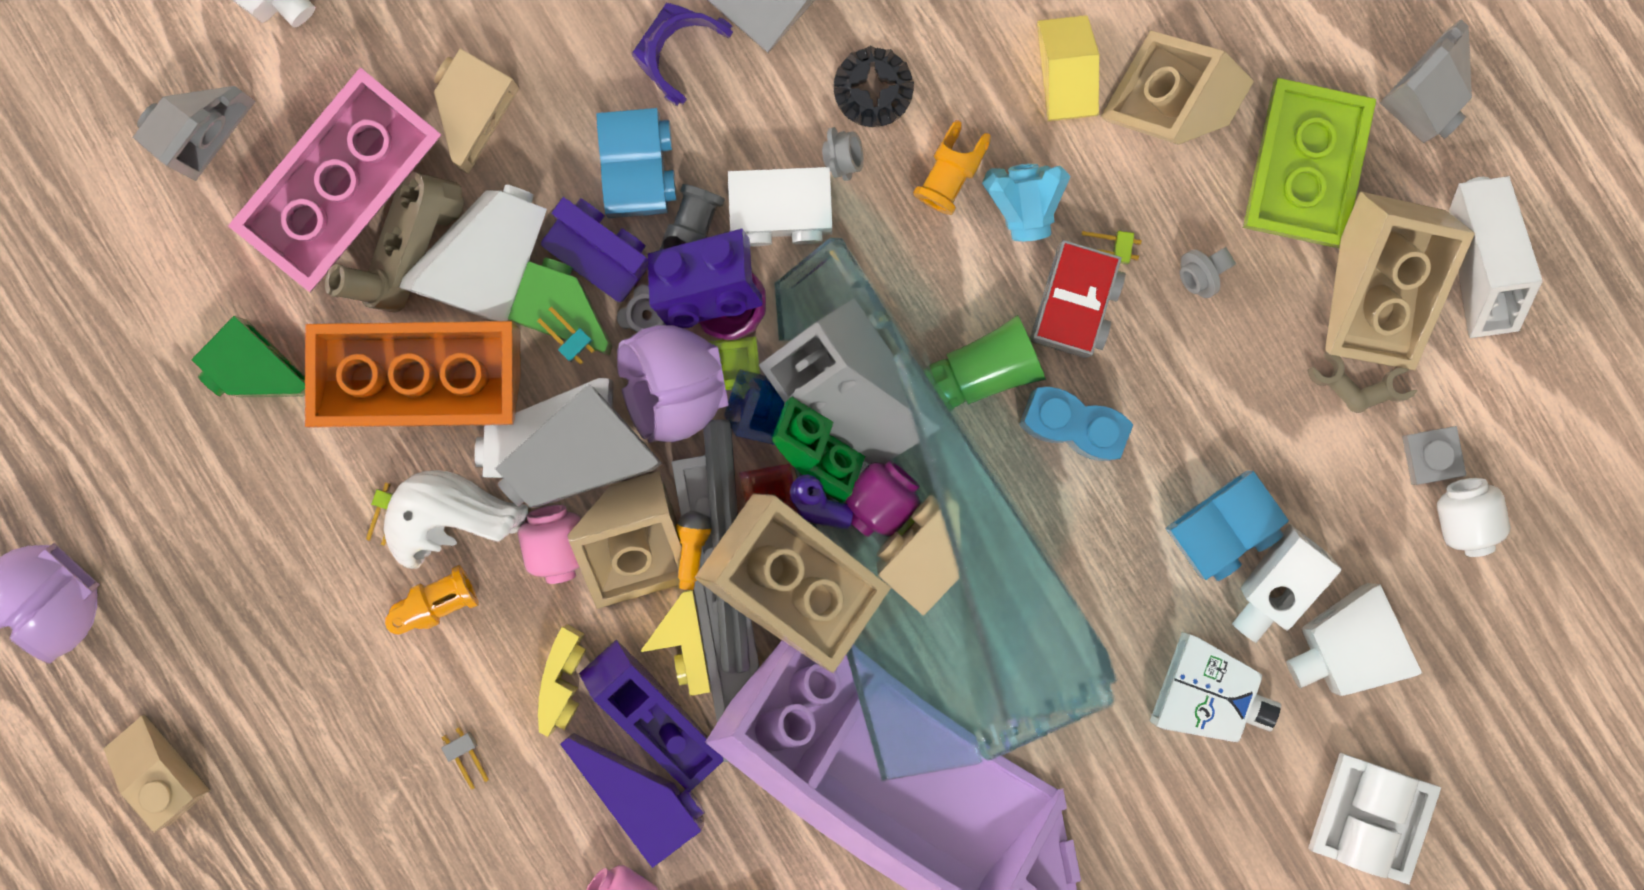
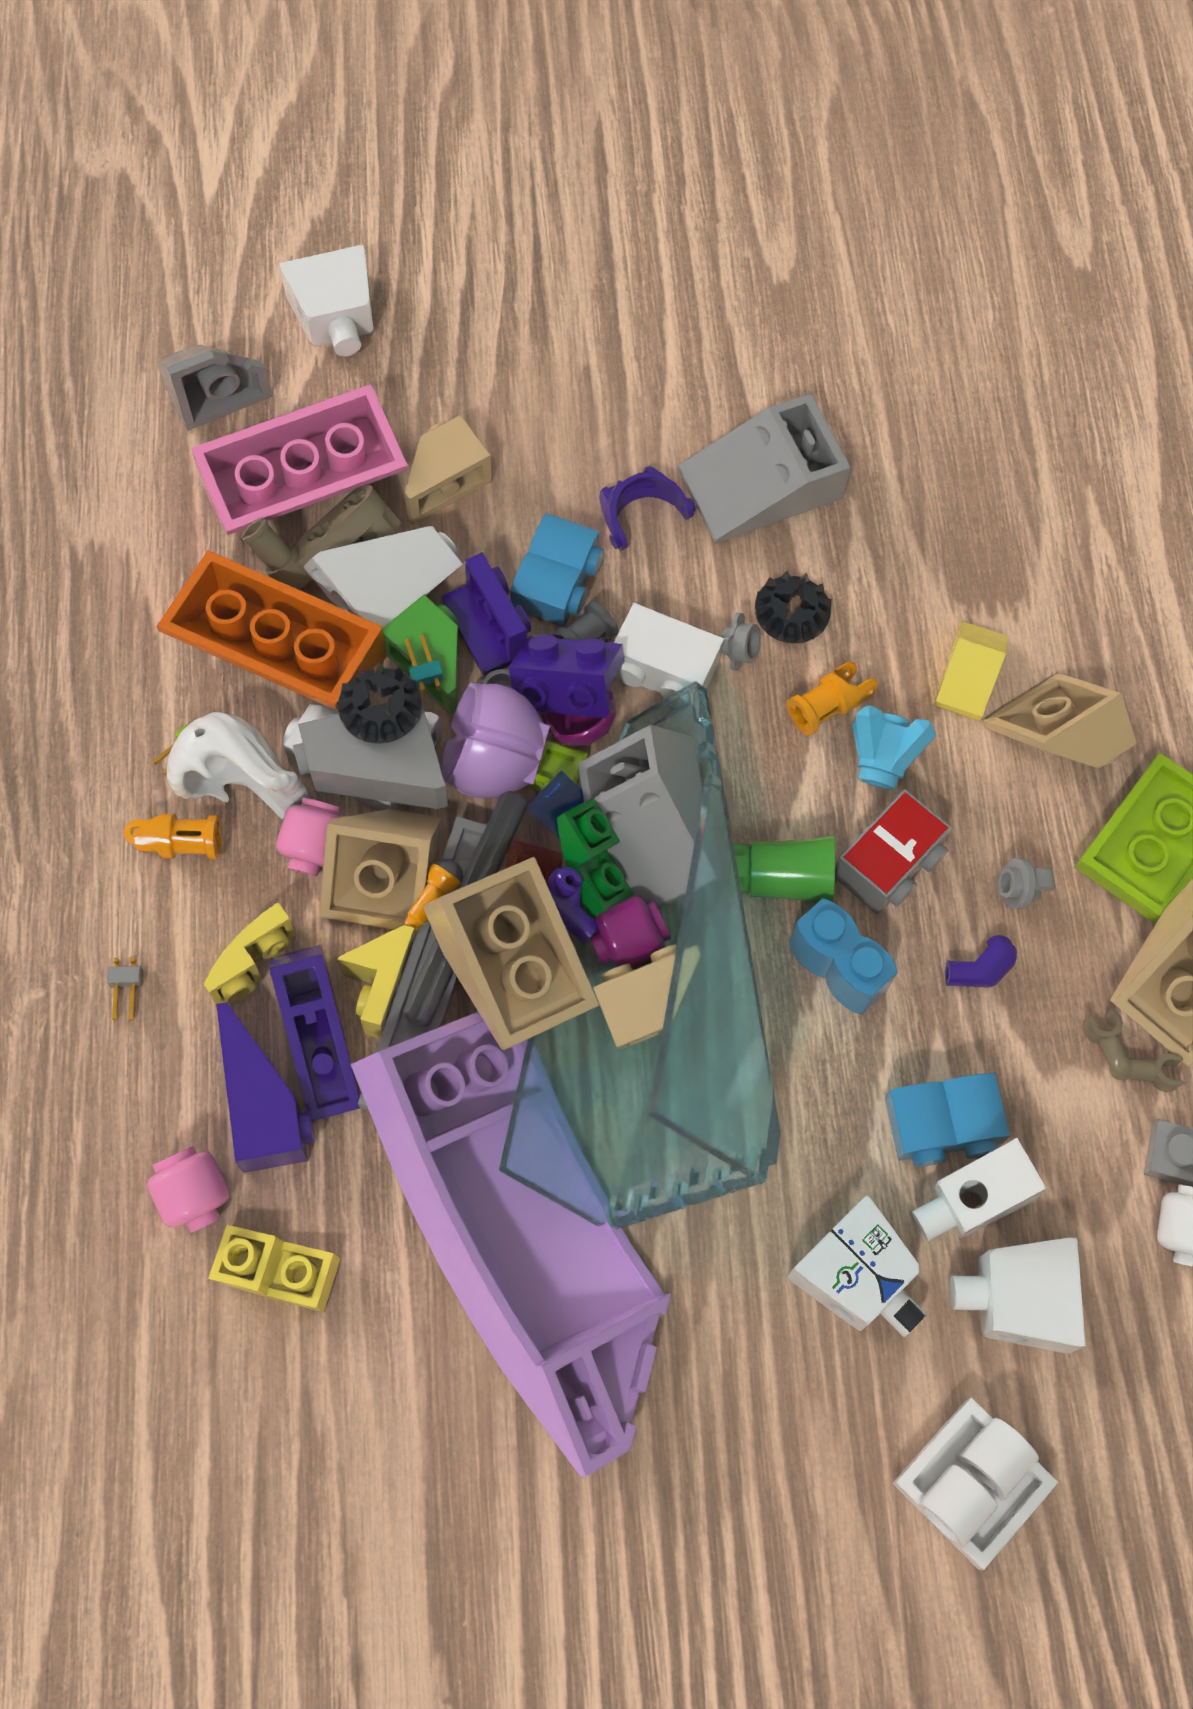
camera: 25 degrees right, 20 degrees down
(247, 364) = (136, 571): green slope -> none
(583, 407) = (372, 723): none -> black gear
(1122, 246) = (957, 833): lime piece -> none
(1206, 366) = (987, 969): none -> dark purple arm

